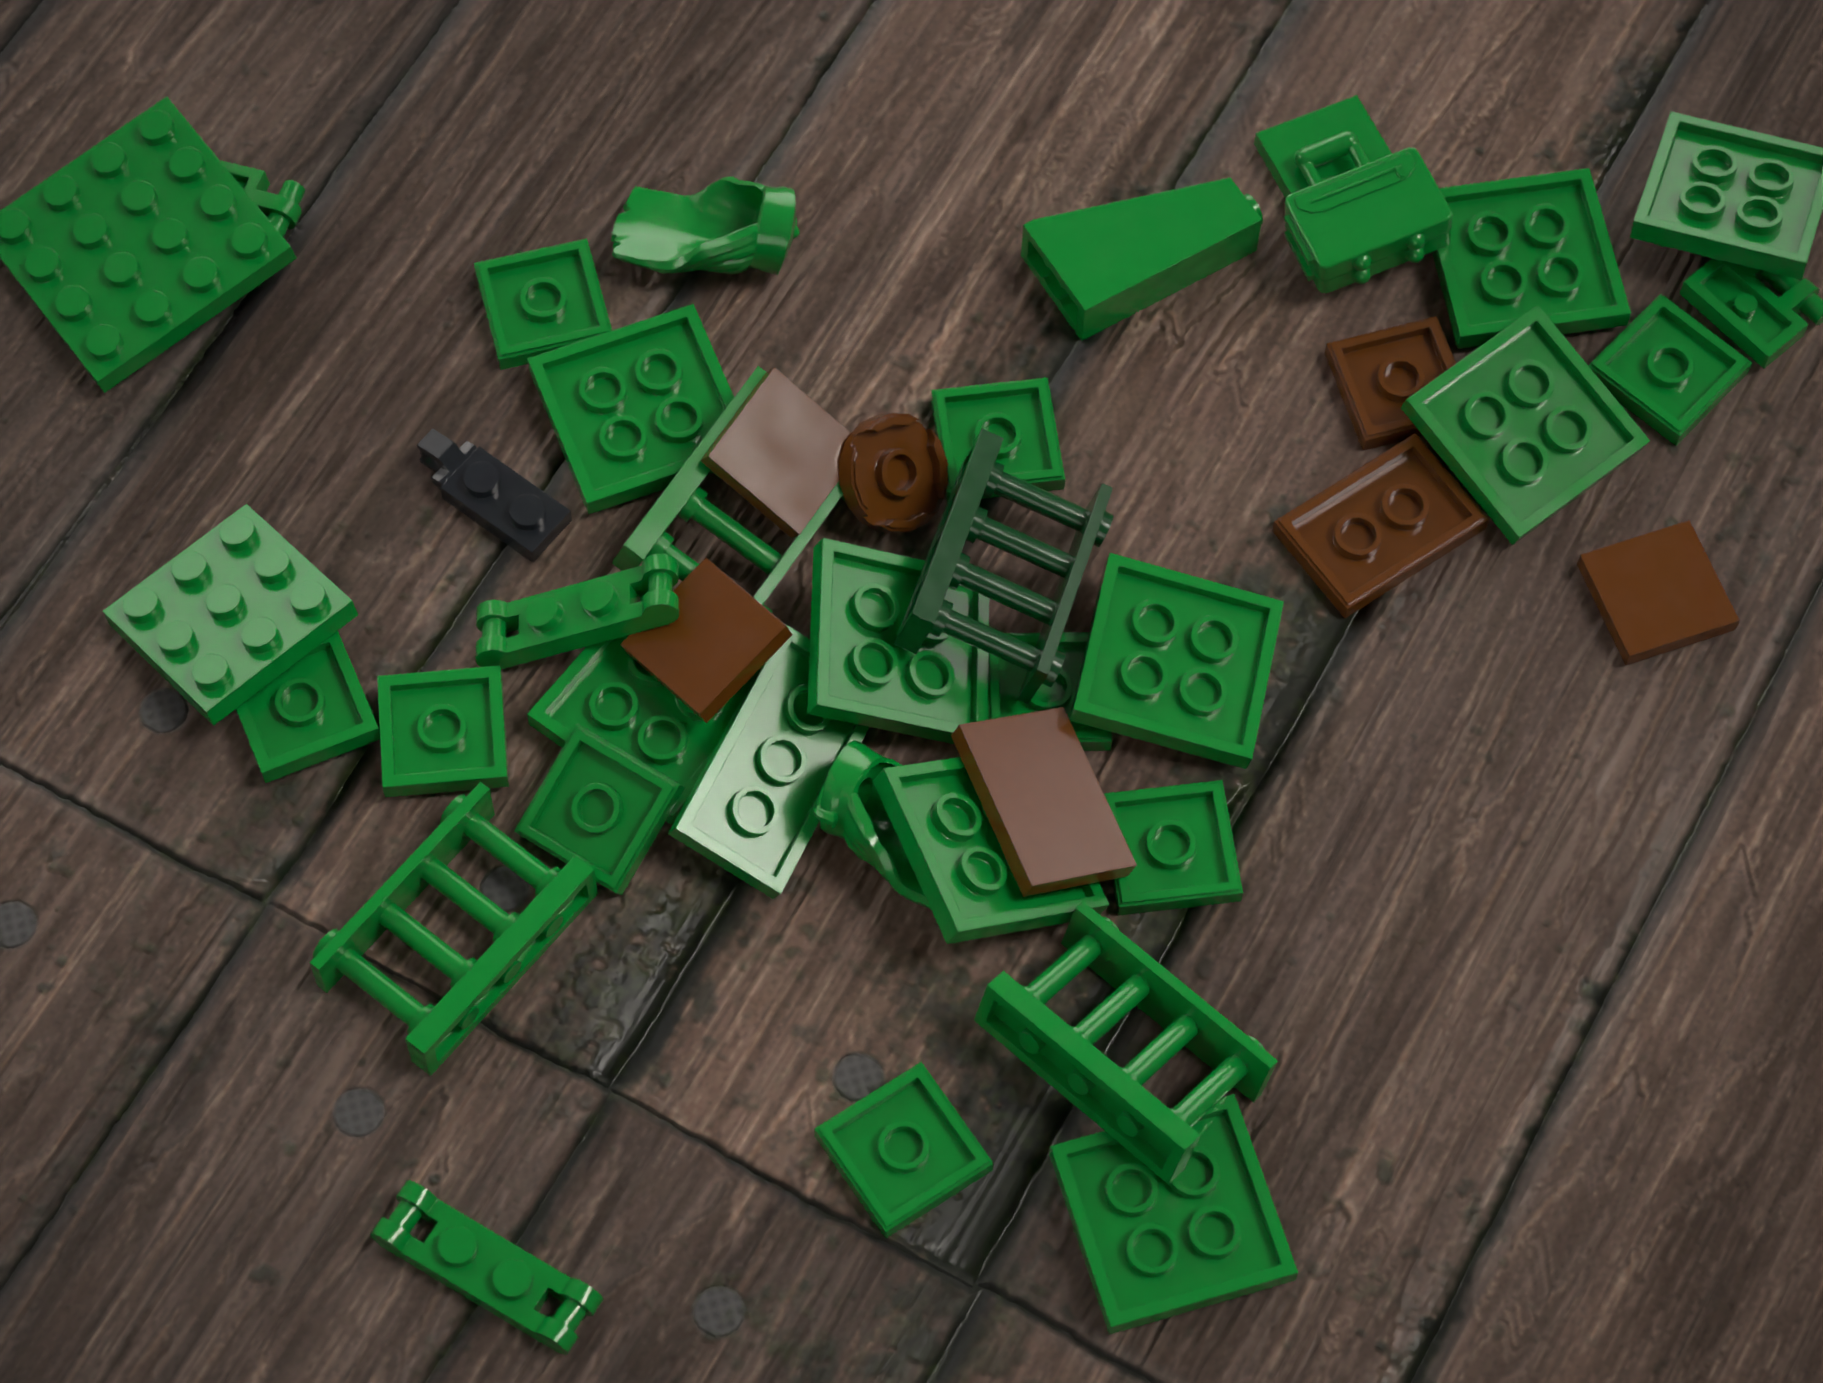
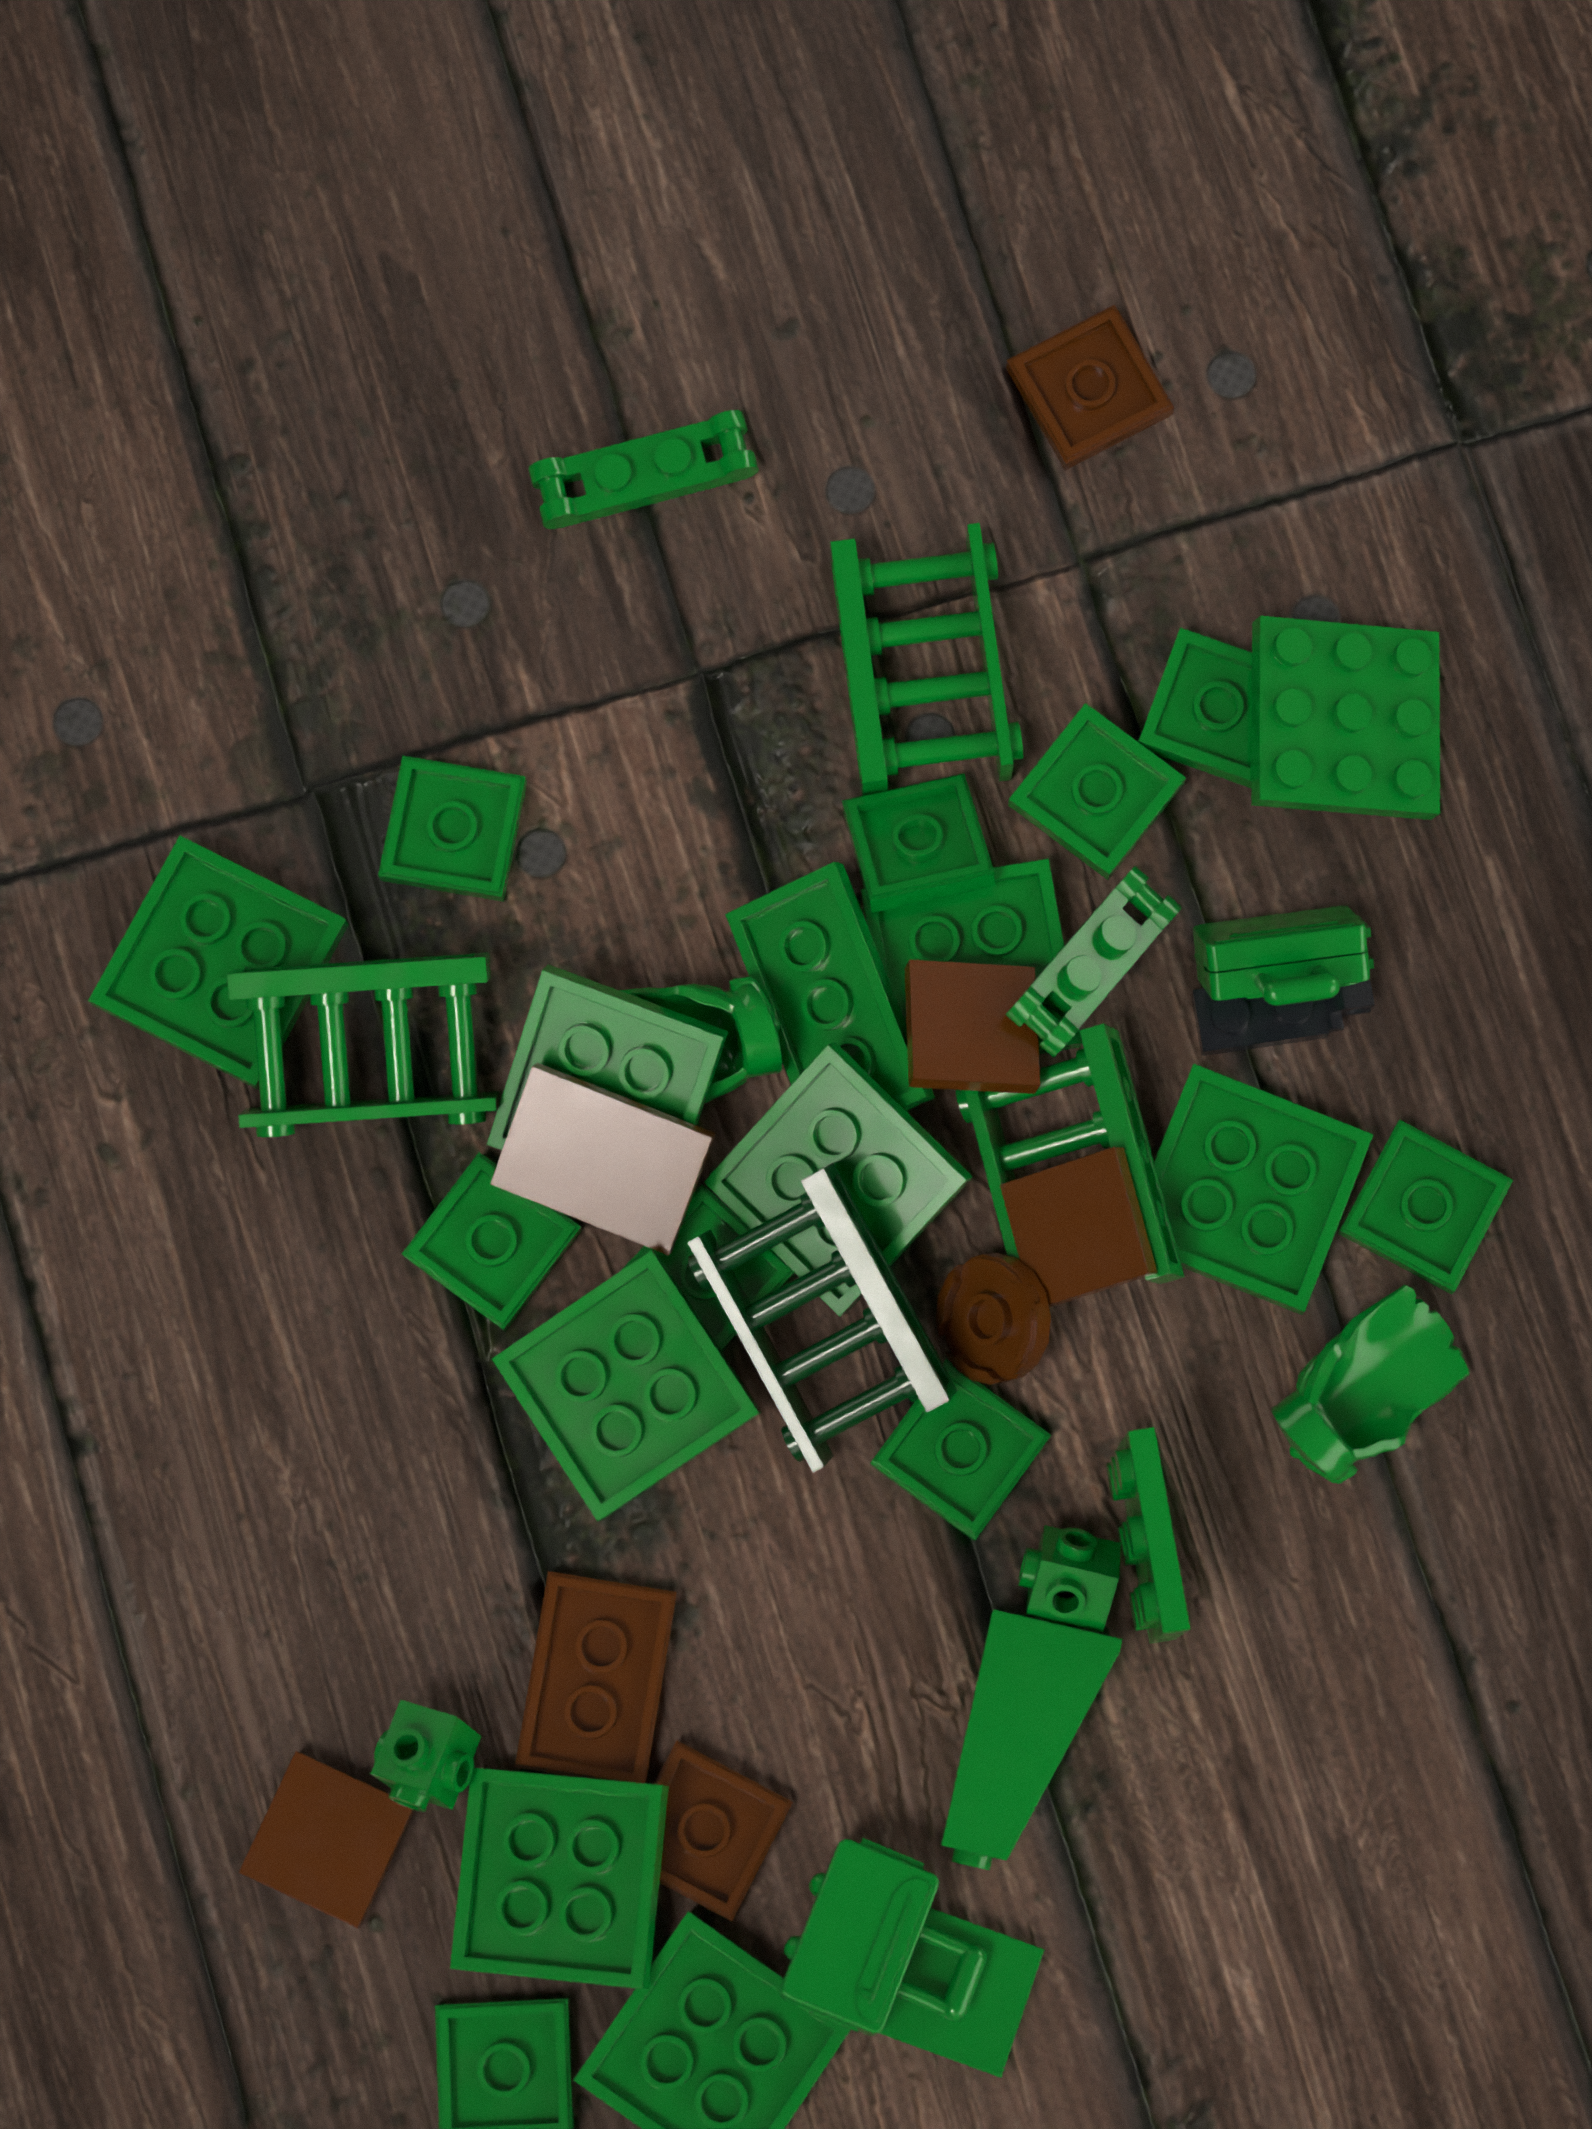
camera: 140 degrees right, 15 degrees up
(115, 1008) = (1089, 387): none -> reddish brown tile
(454, 498) = (1283, 955): none -> green piece
(944, 244) = (1148, 1537): none -> green plate
(1013, 290) = (1071, 1577): none -> green brick
(1527, 572) = (425, 1757): none -> green brick

